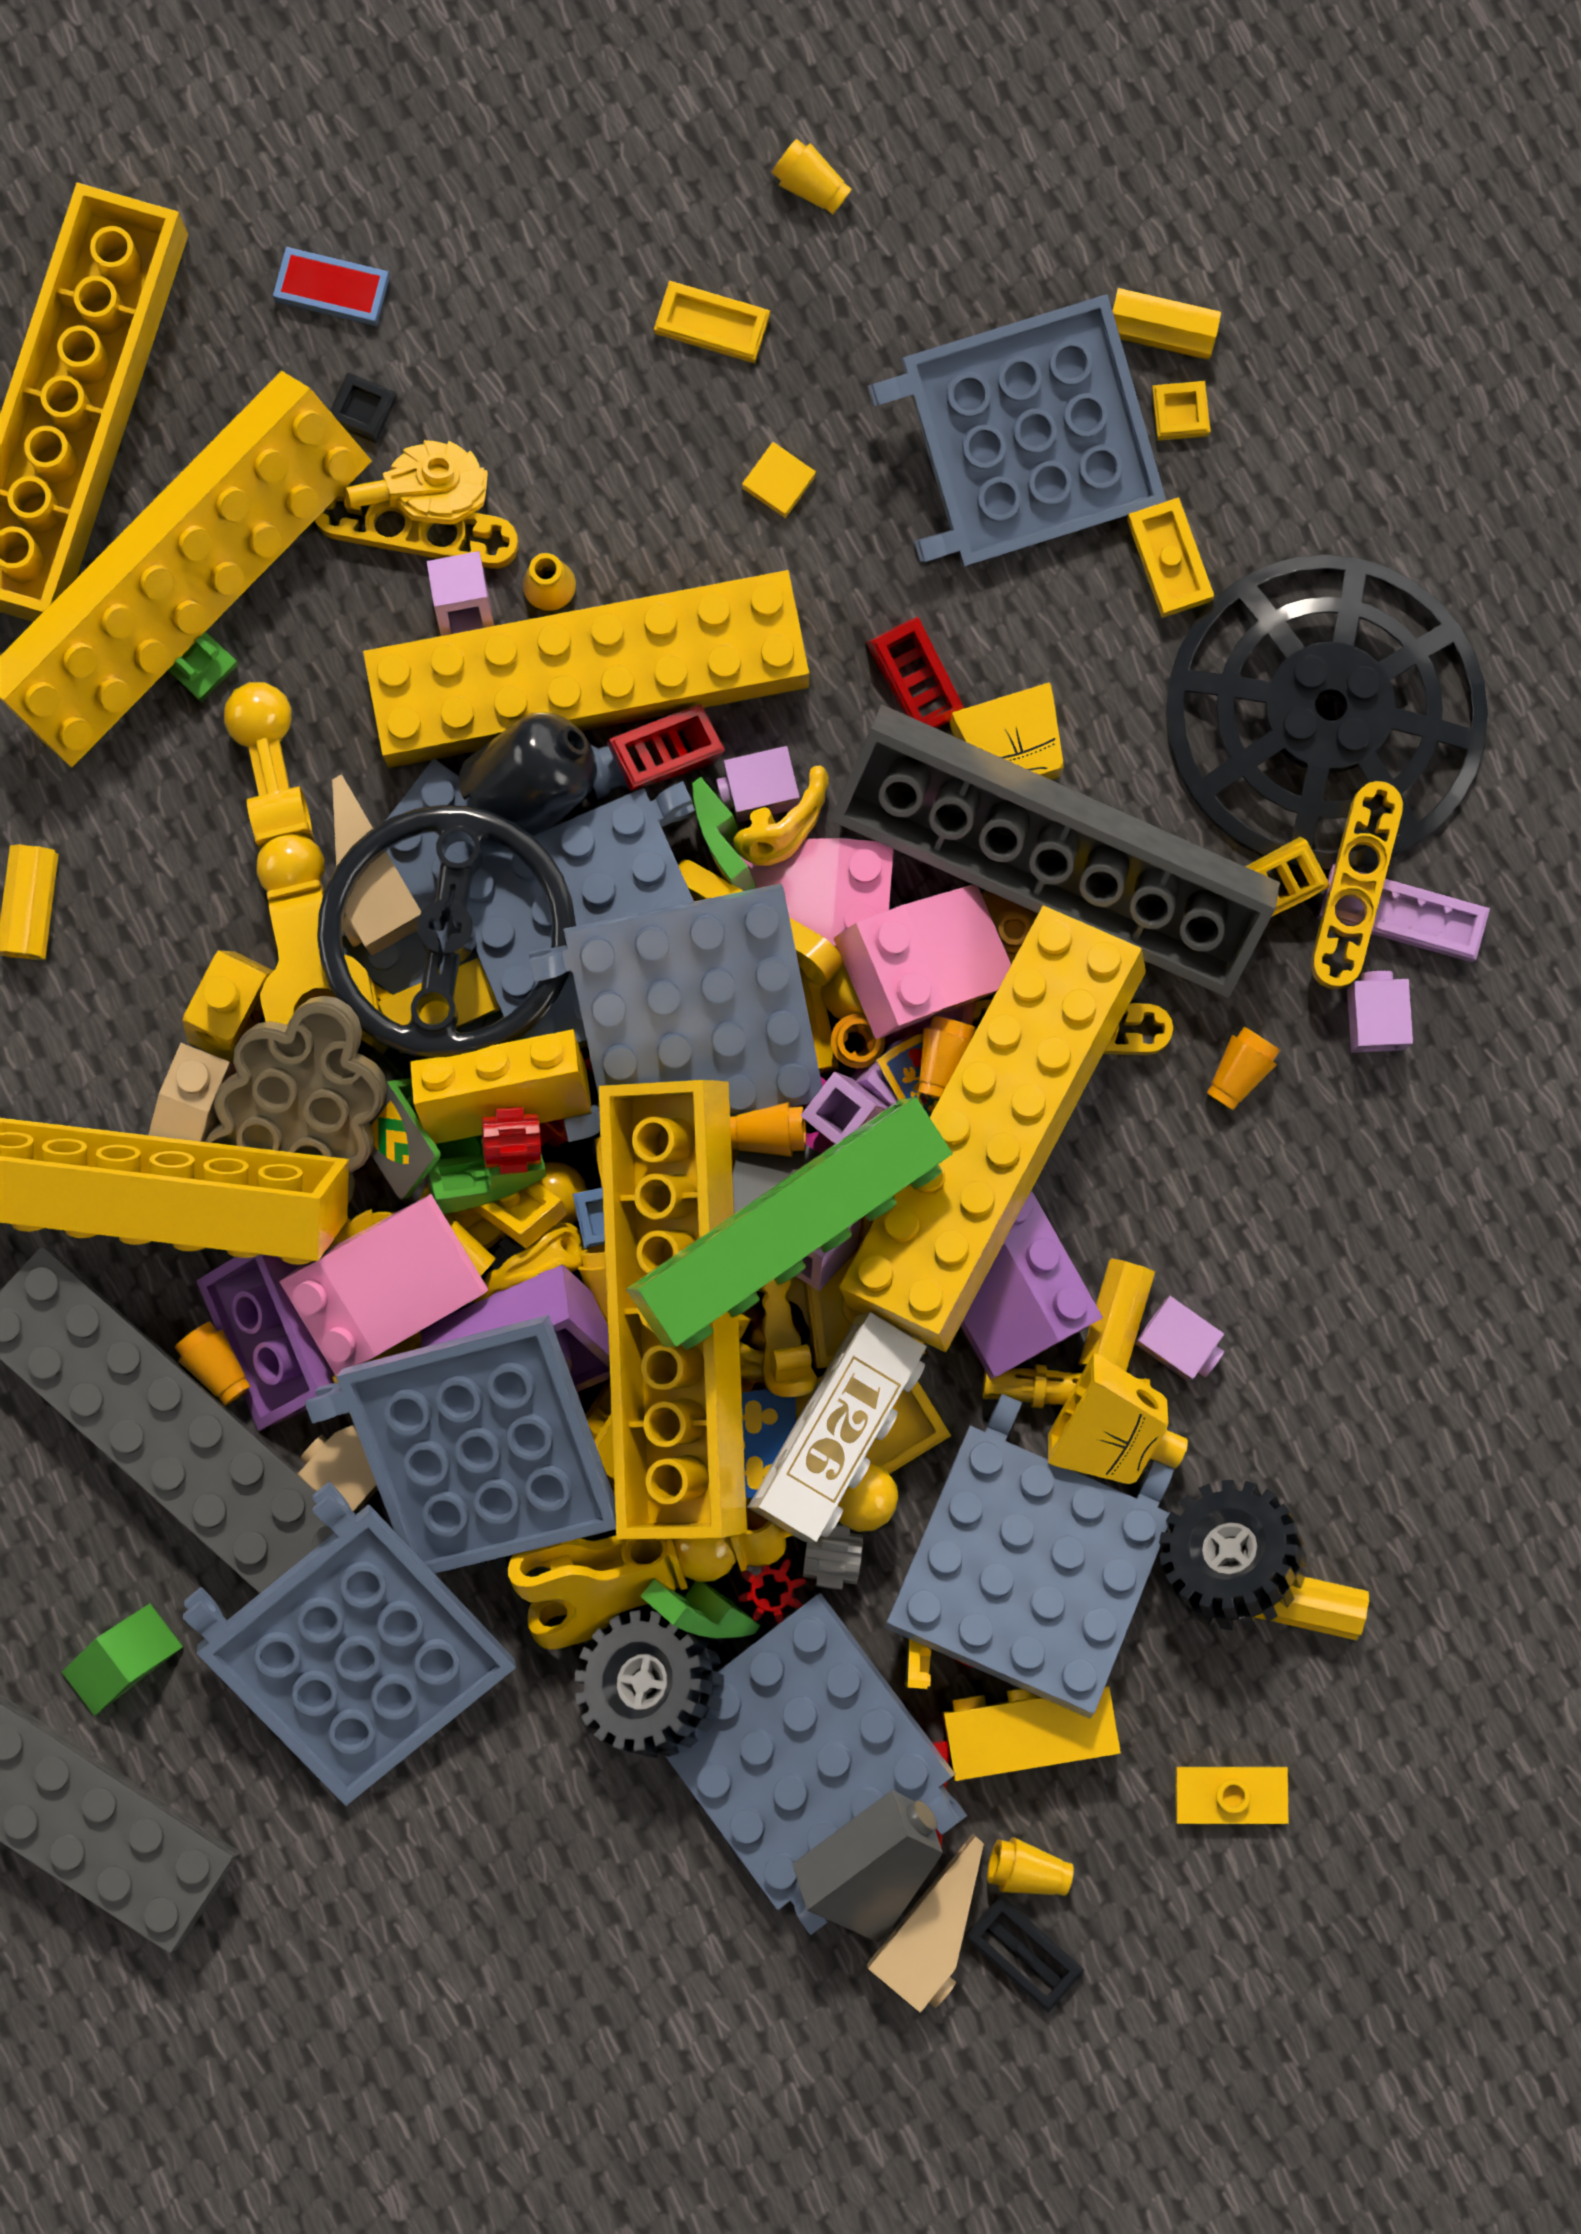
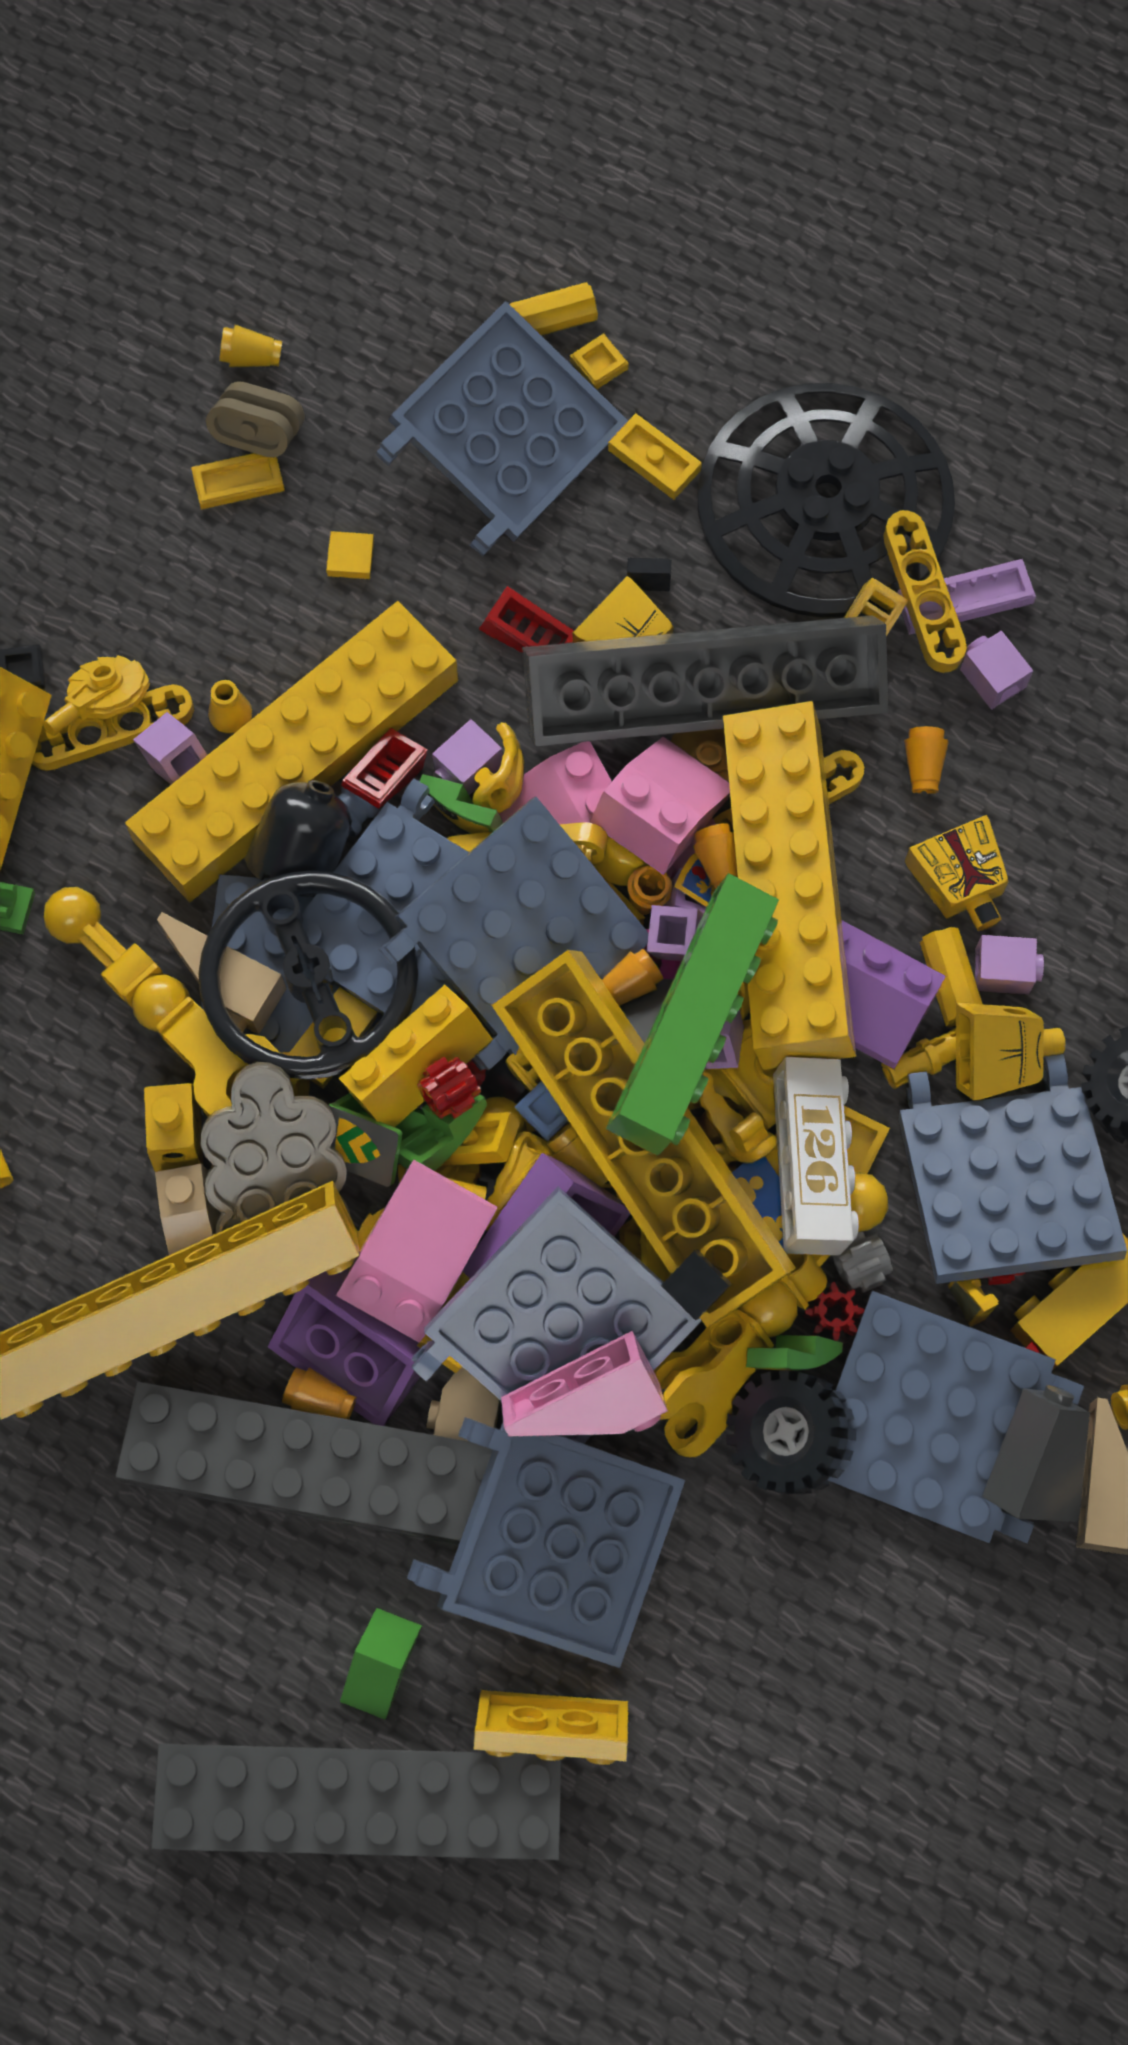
camera: 30 degrees left, 10 degrees down
(241, 1823) = (552, 1727): none -> yellow plate
(455, 1539) = (591, 1395): none -> bright pink slope
(628, 1493) = (696, 1284): none -> black tile
(766, 268) = (255, 419): none -> dark tan brick
(1078, 689) = (650, 573): none -> black tile
(1199, 1213) = (962, 871): none -> yellow torso

